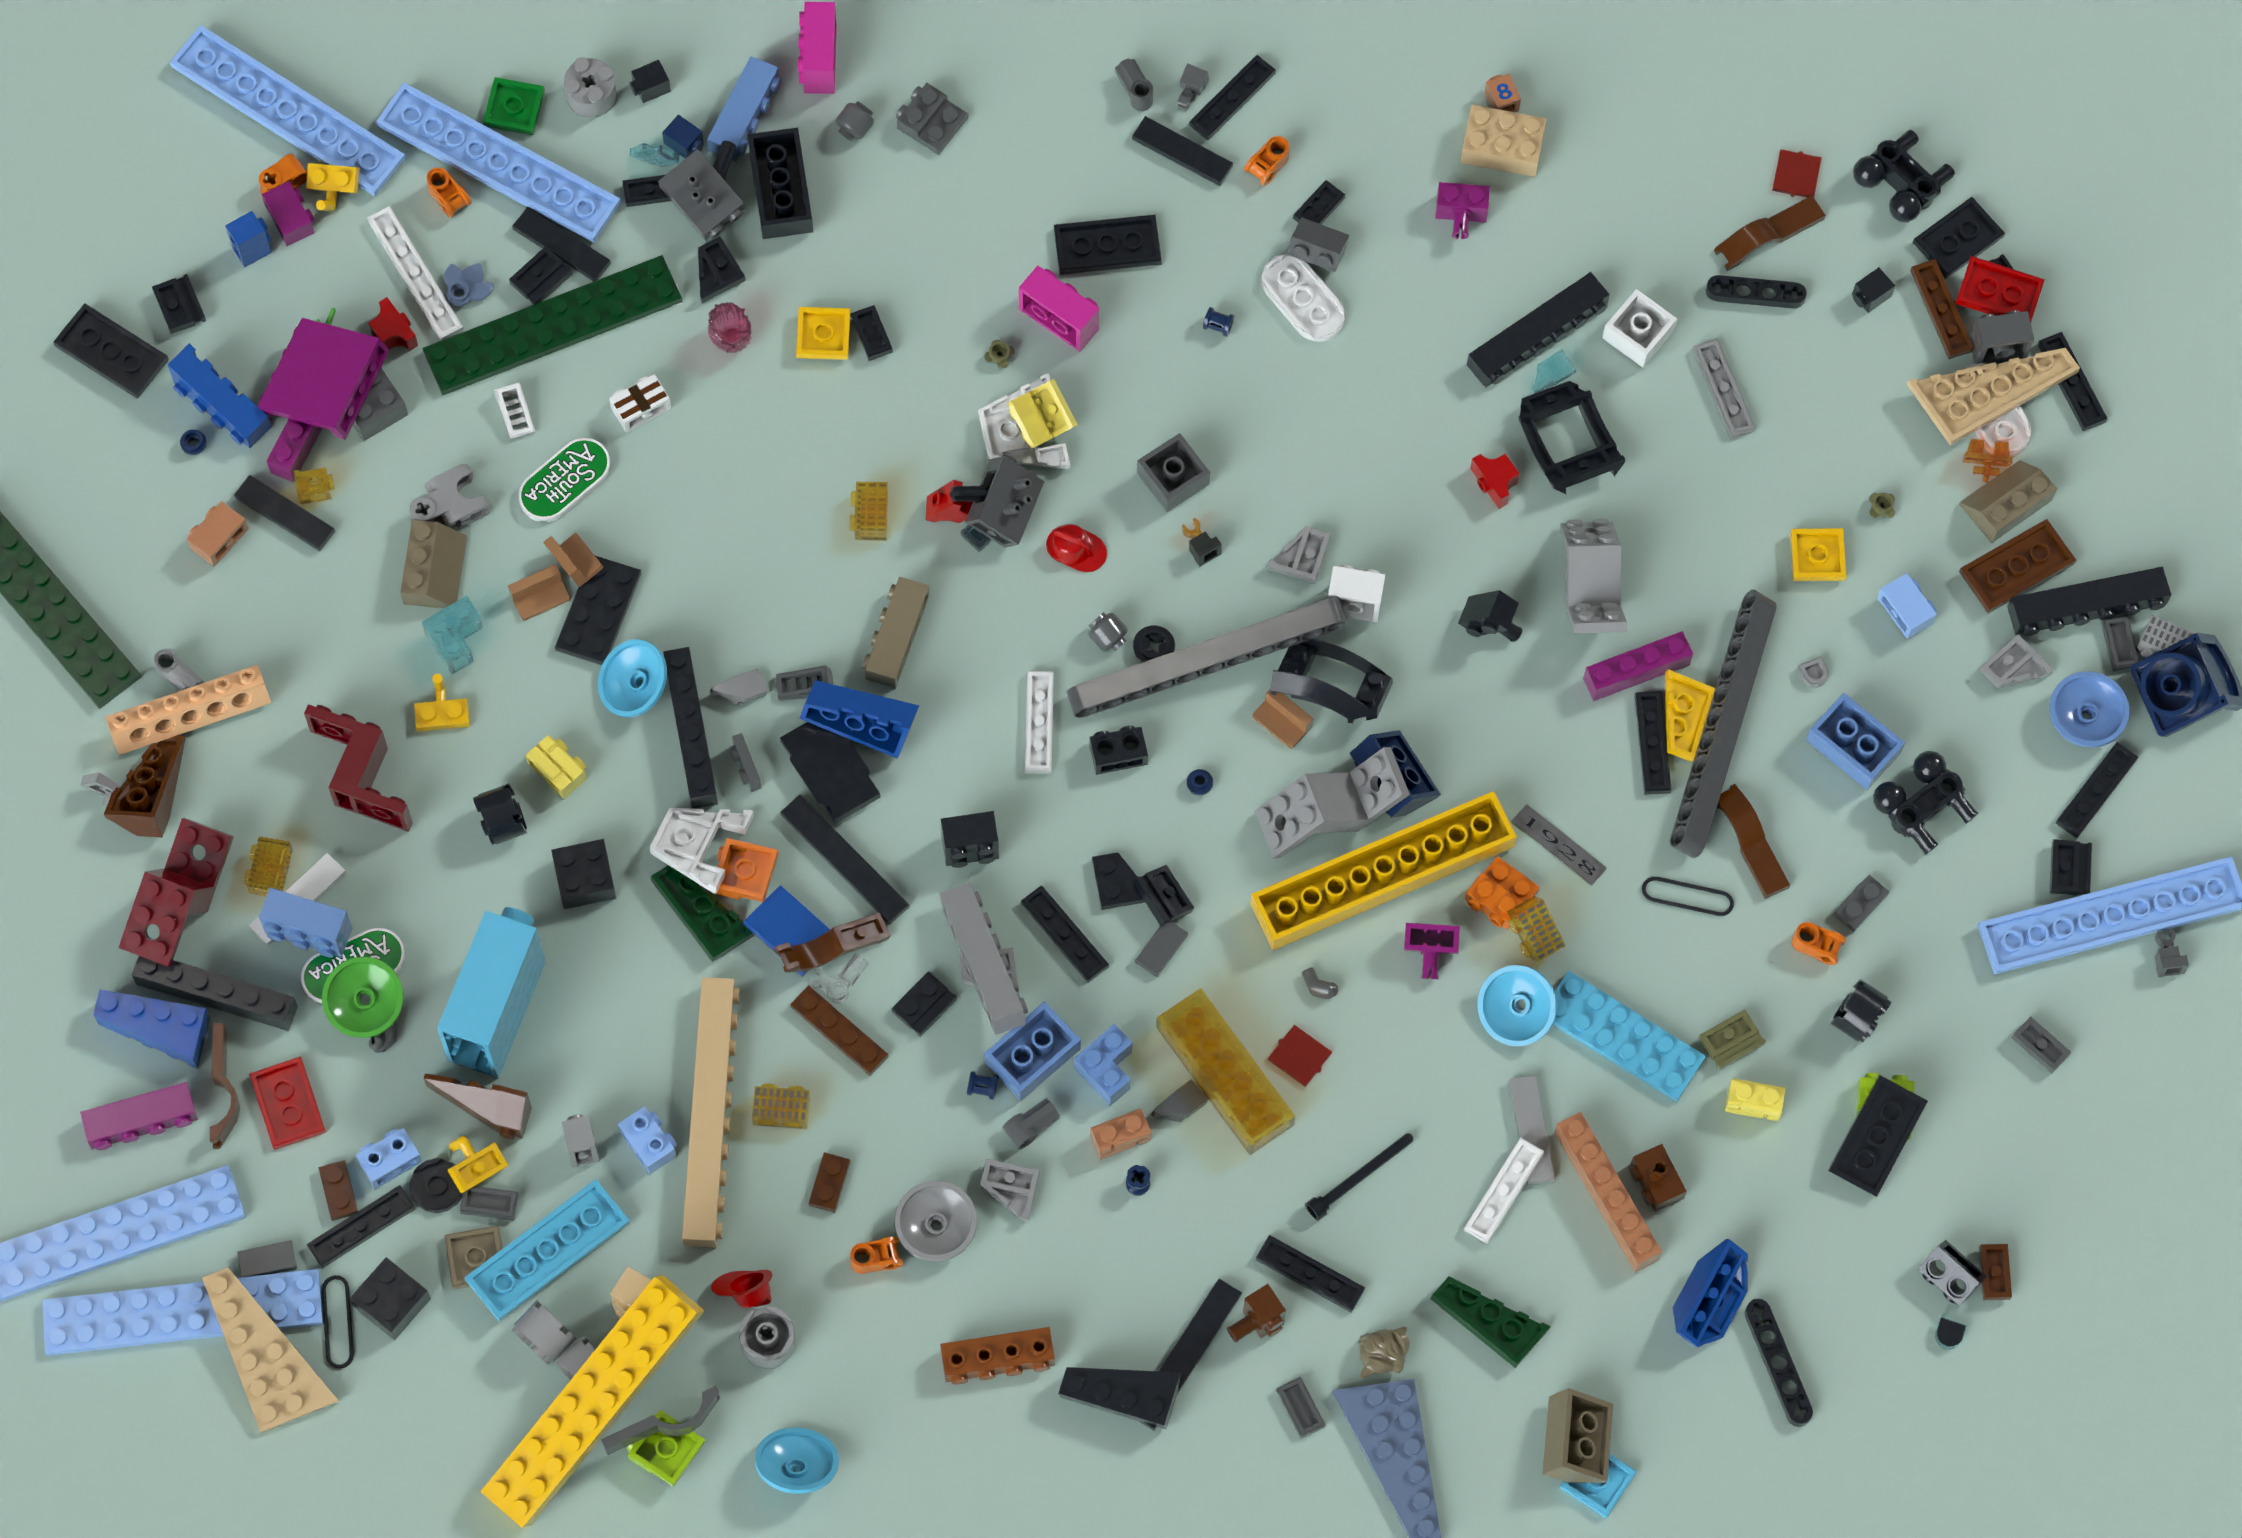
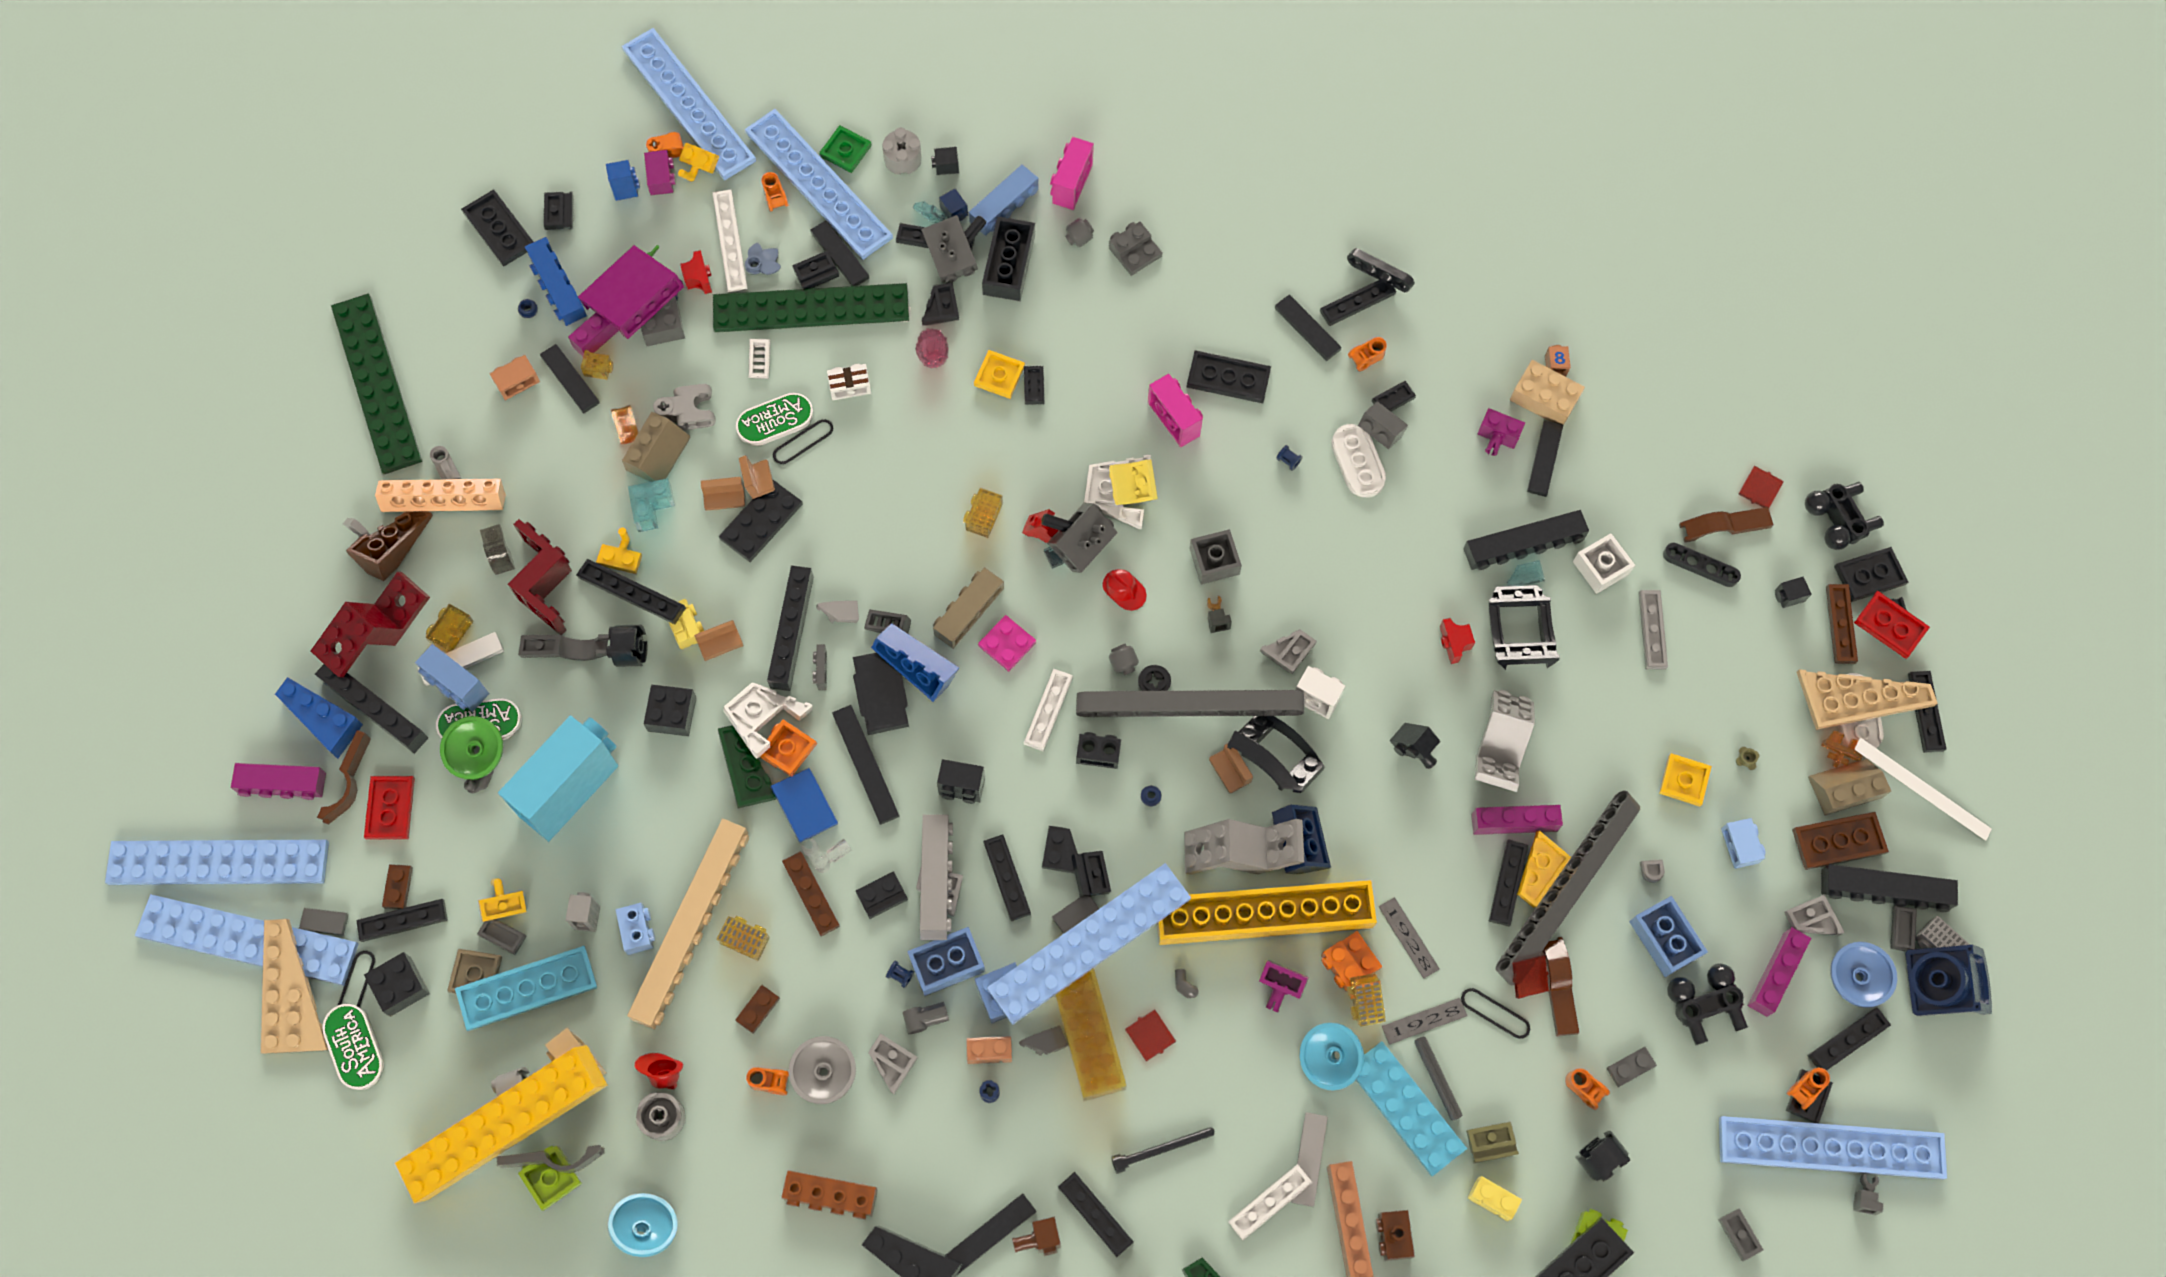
camera: 20 degrees right, 0 degrees up
(289, 752) = (496, 549): none -> clear smoke brick
(367, 1387) = (353, 1046): none -> tile
(384, 547) = (625, 424): none -> clear orange hips
(388, 1157) = (441, 875): light blue brick -> none
(419, 843) = (563, 647): none -> dark grey piece
(434, 1187) = (464, 908): black tile -> none
(476, 748) = (631, 591): none -> black tile
(498, 1108) = (535, 866): wedge -> none
(544, 1331) = (495, 1052): light grey brick -> none
(601, 491) = (798, 435): none -> black piece
(607, 772) = (718, 640): none -> medium nougat panel
(623, 674) = (762, 577): medium azure dish -> none
(833, 944) = (829, 826): reddish brown piece -> none
(959, 659) = (1007, 643): none -> dark pink plate
(1002, 347) = (1121, 424): olive plate -> none
(1135, 84) = (1290, 269): dark grey piece -> none
(1192, 82) = (1332, 280): dark grey piece -> none
(1193, 972) = (1088, 943): none -> light blue plate
(1247, 50) = (1396, 277): none -> black beam
(1527, 221) = (1545, 458): none -> black tile
(1609, 932) = (1424, 1021): none -> flat silver sticker
(1647, 990) = (1438, 1078): none -> dark grey axle
(1713, 840) = (1530, 977): none -> clear red piece
(1994, 739) = (1779, 972): none -> magenta brick
(2002, 337) = (1883, 660): dark grey brick -> none
(2064, 859) = (1806, 1090): none -> orange piece
(2093, 474) = (1923, 789): none -> white sticker

